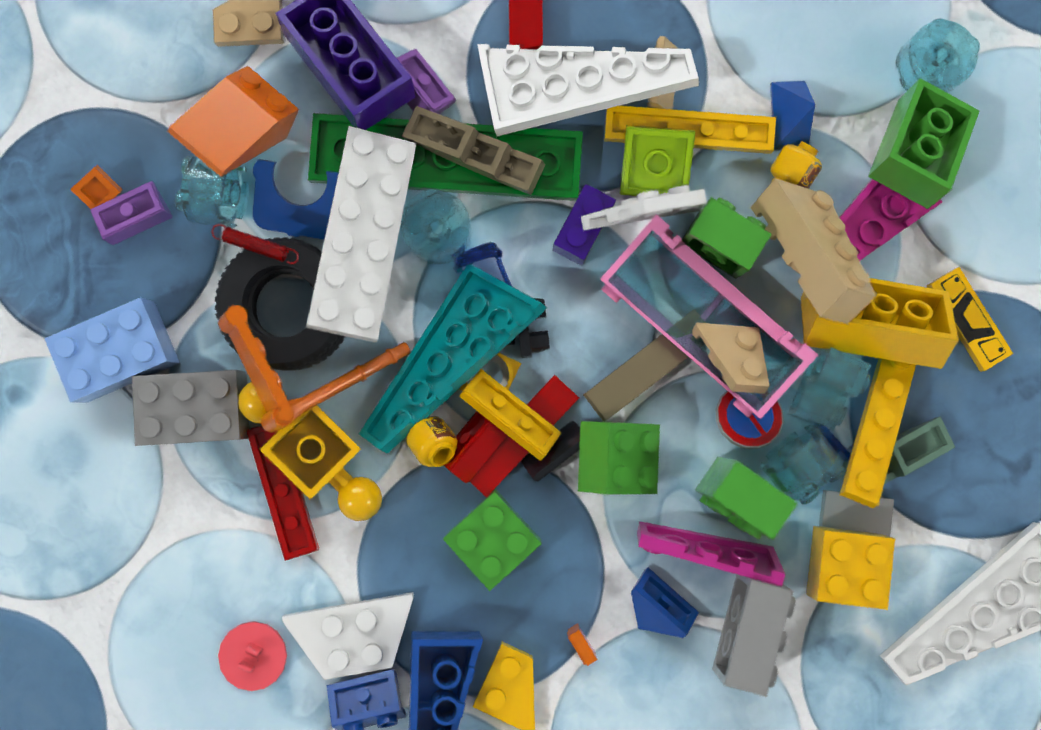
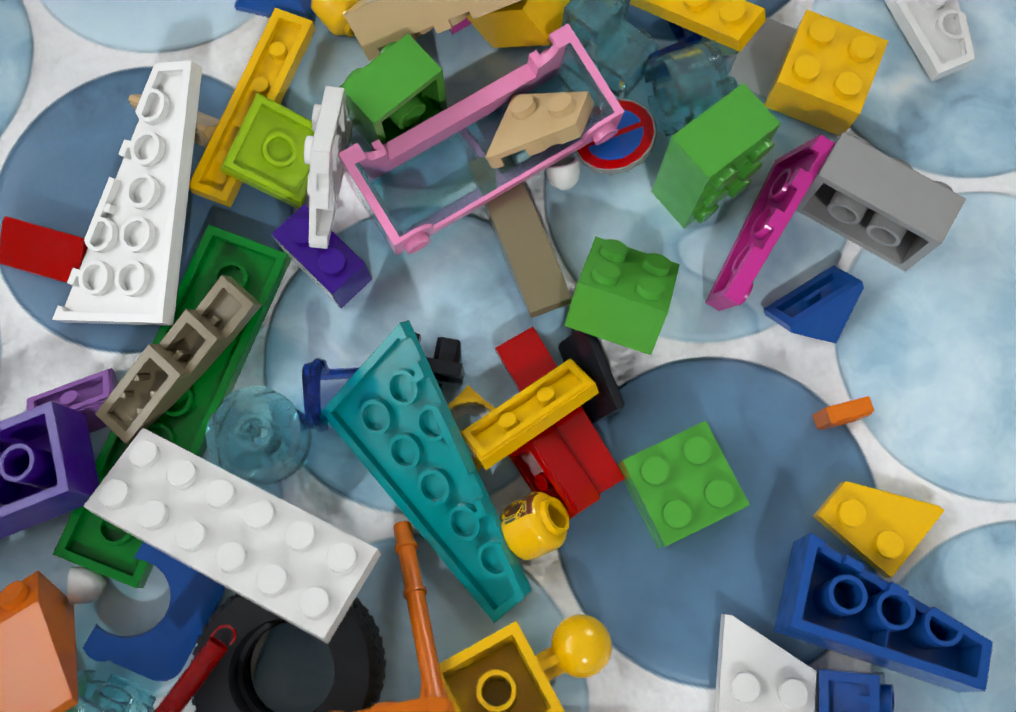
camera: 75 degrees left, 10 degrees down
(299, 142) = (84, 585): none -> white hinge
(707, 386) = (564, 173): none -> white hinge

